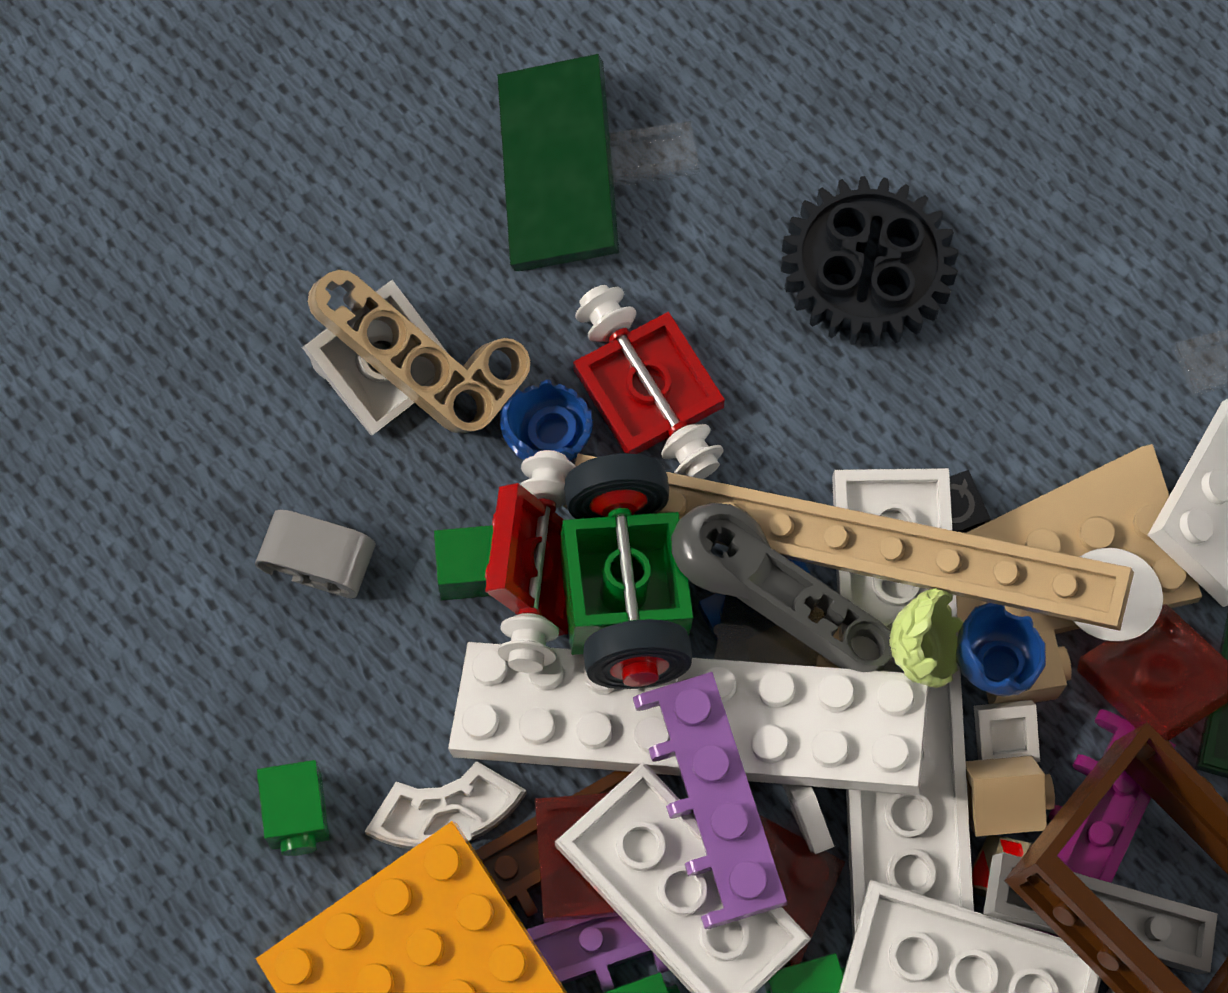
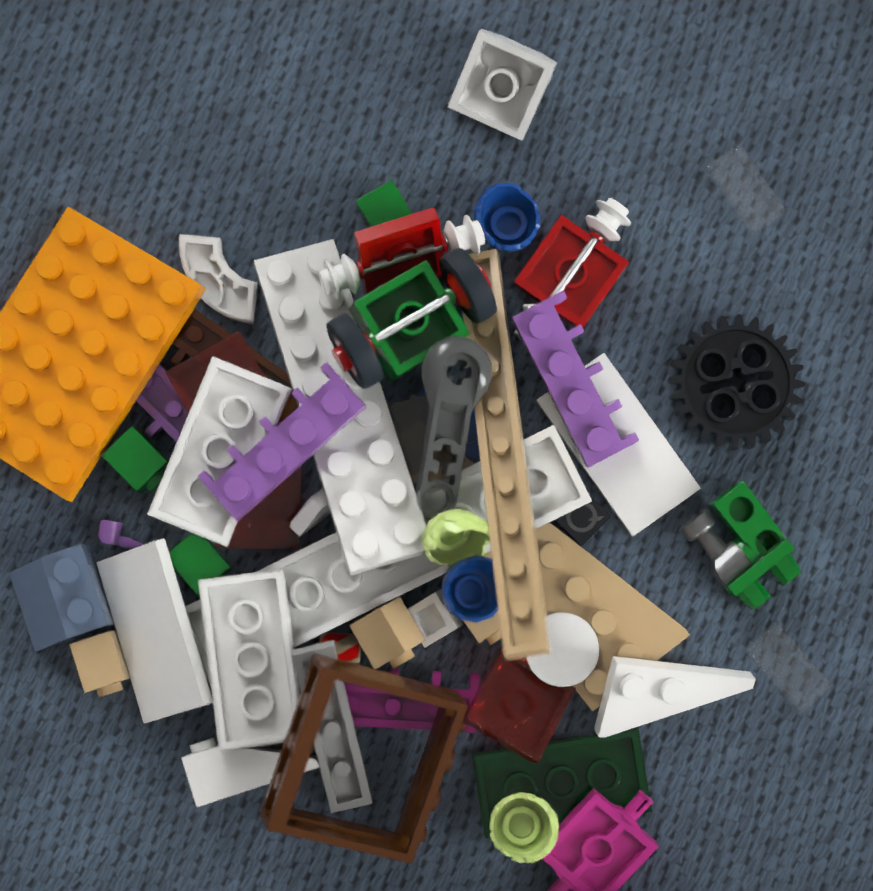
camera: 65 degrees right, 15 degrees up
(293, 807) = (171, 181): green brick -> none
(316, 553) = (346, 111): light grey beam -> none
(411, 342) = (512, 100): tan beam -> none
(557, 163) = (708, 133): dark green tile -> none
(784, 435) = (570, 381): none -> medium lavender hinge
(882, 420) = (641, 479): none -> white tile
(1082, 325) = (752, 552): none -> green hips

